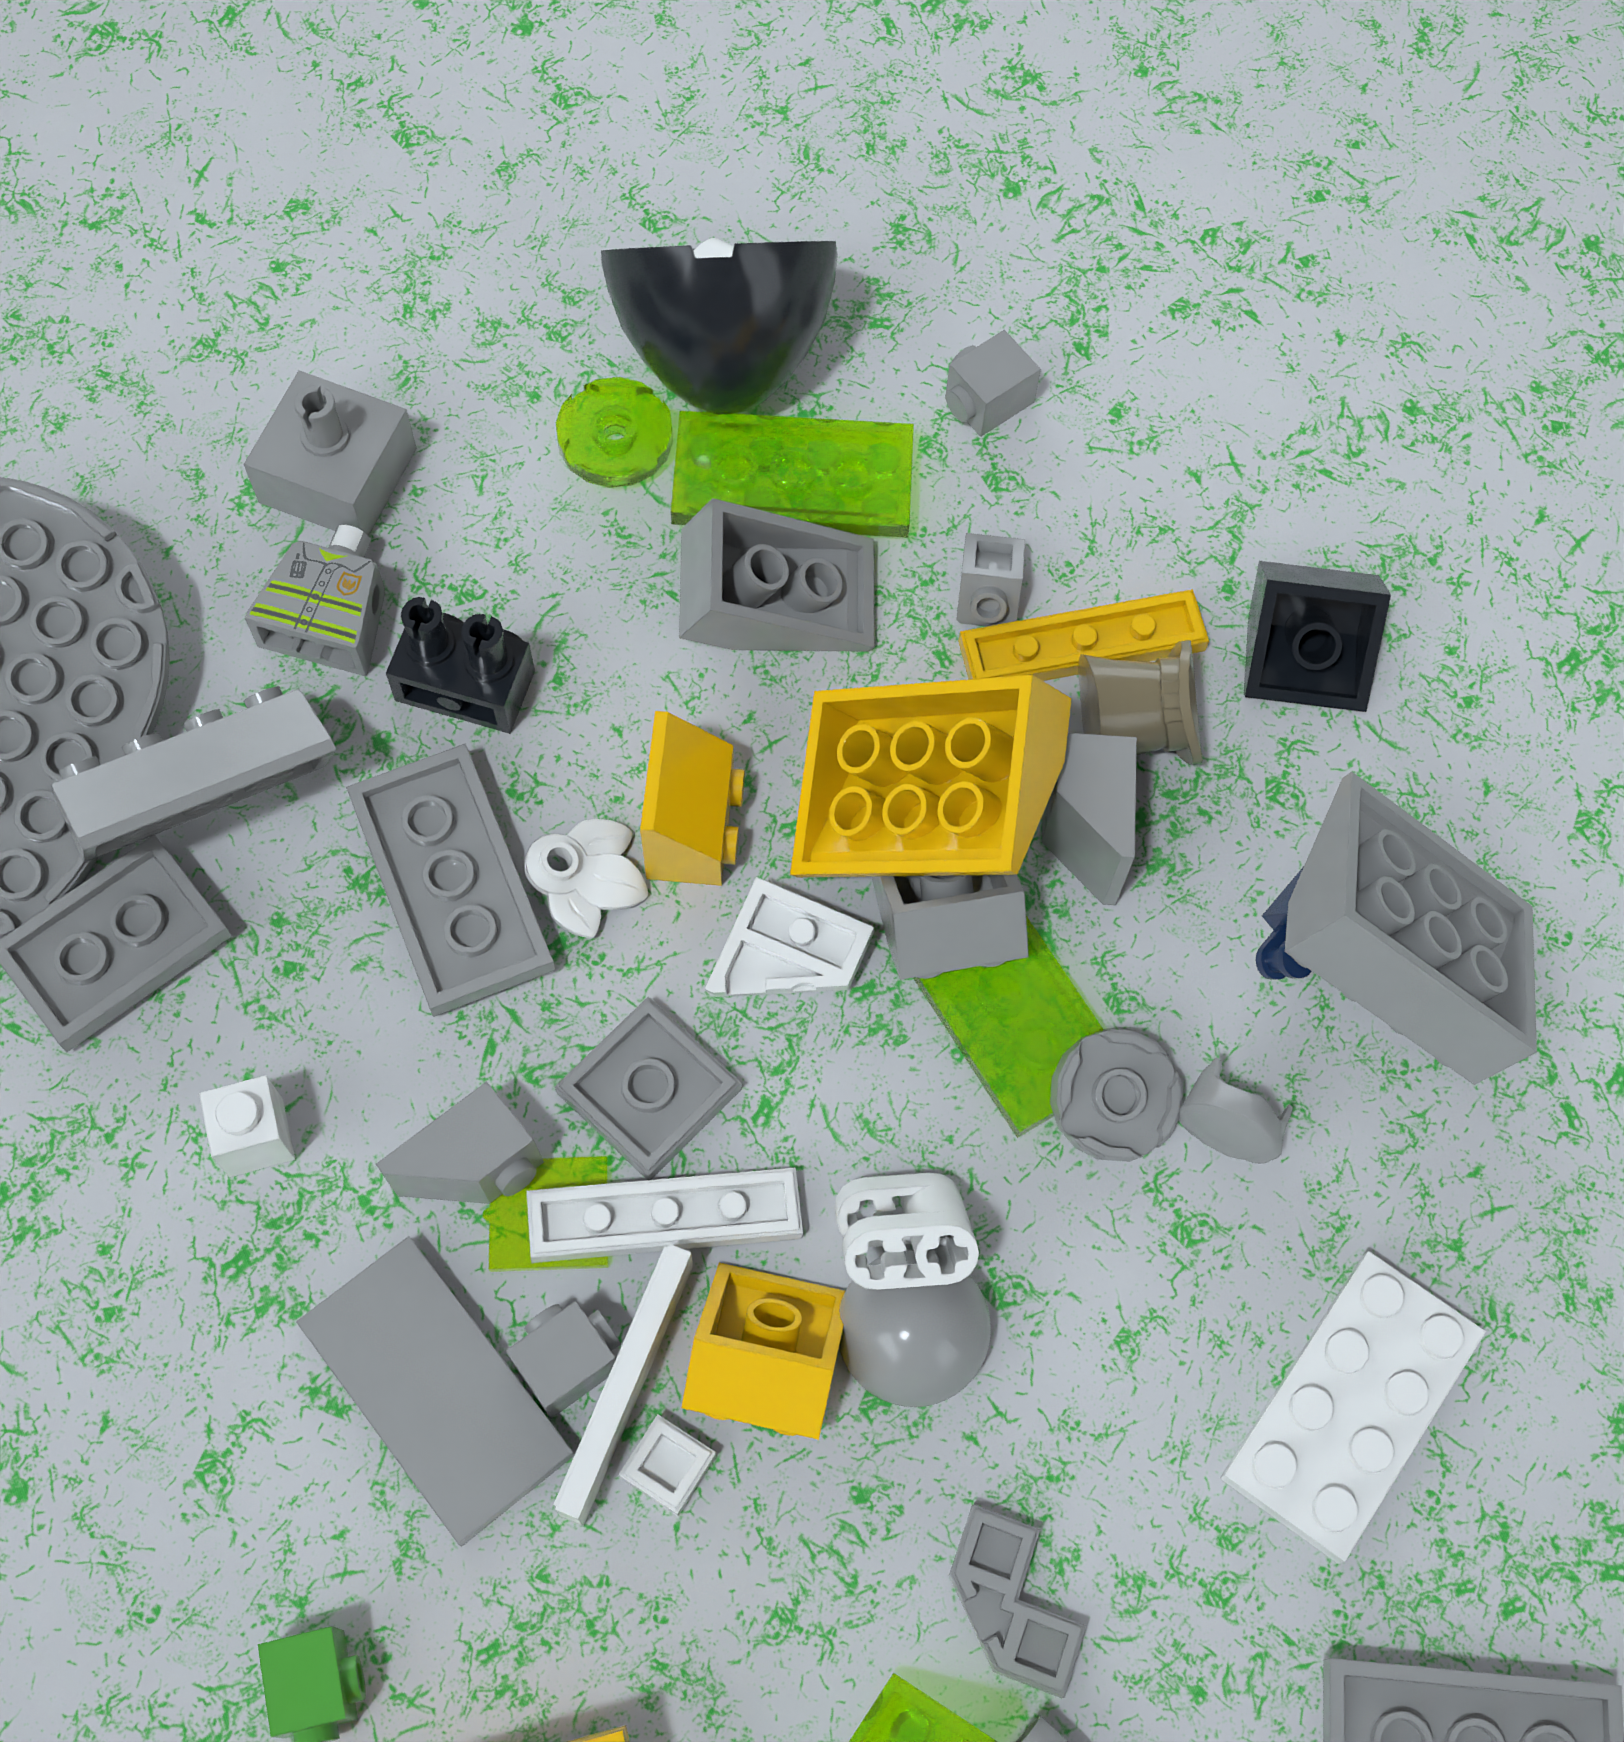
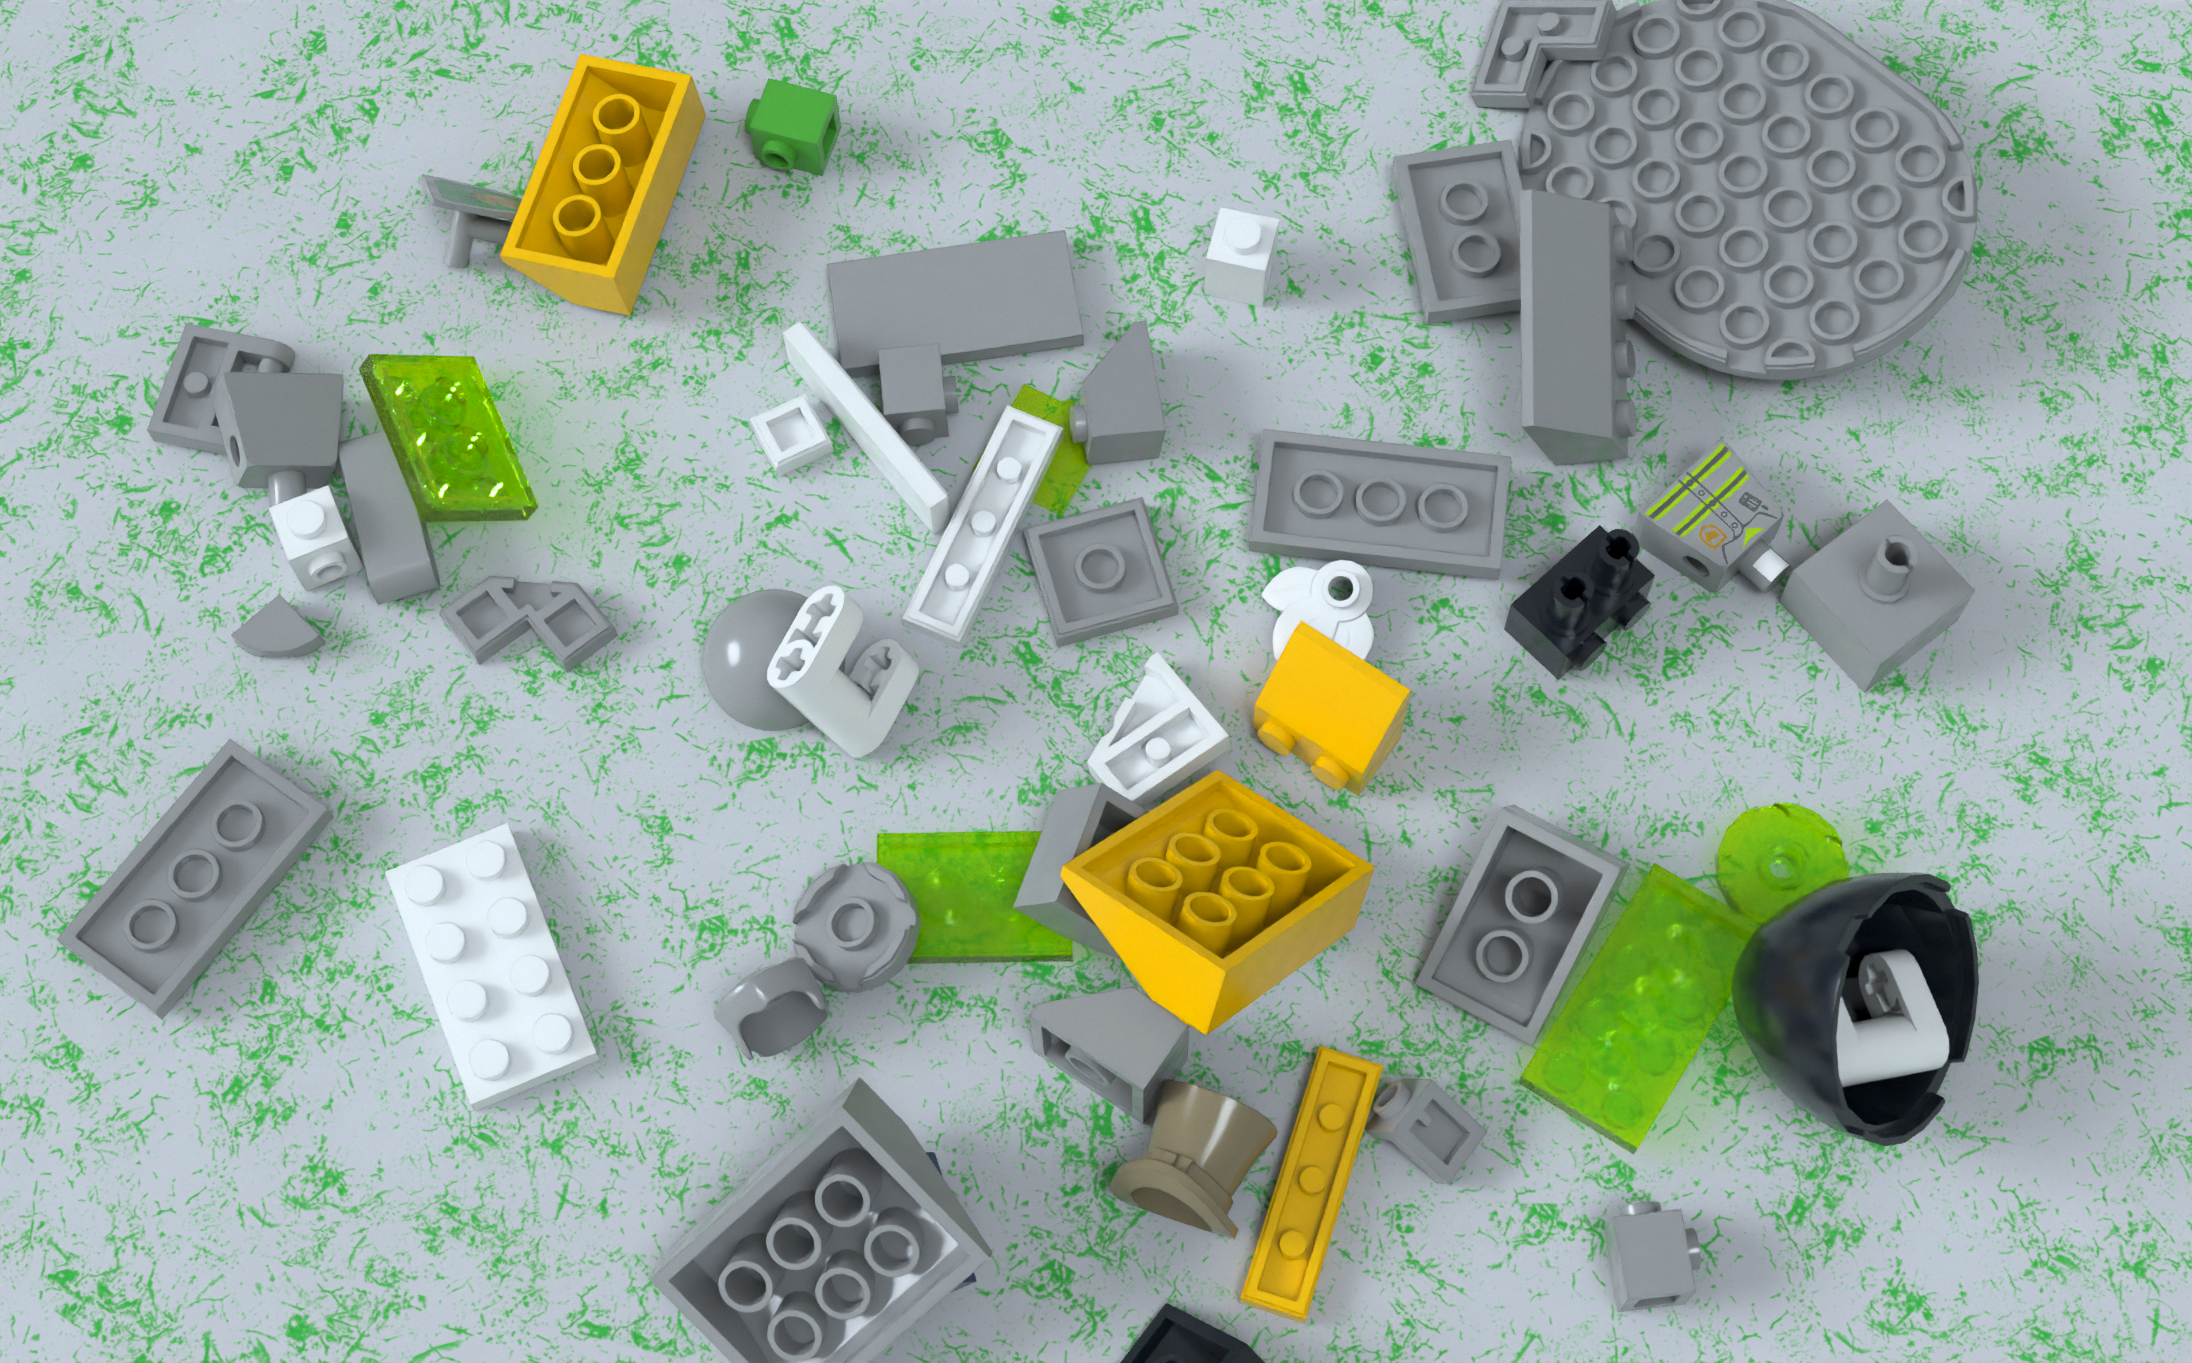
camera: 125 degrees right, 0 degrees up
(765, 1351) = (828, 531): yellow slope -> none

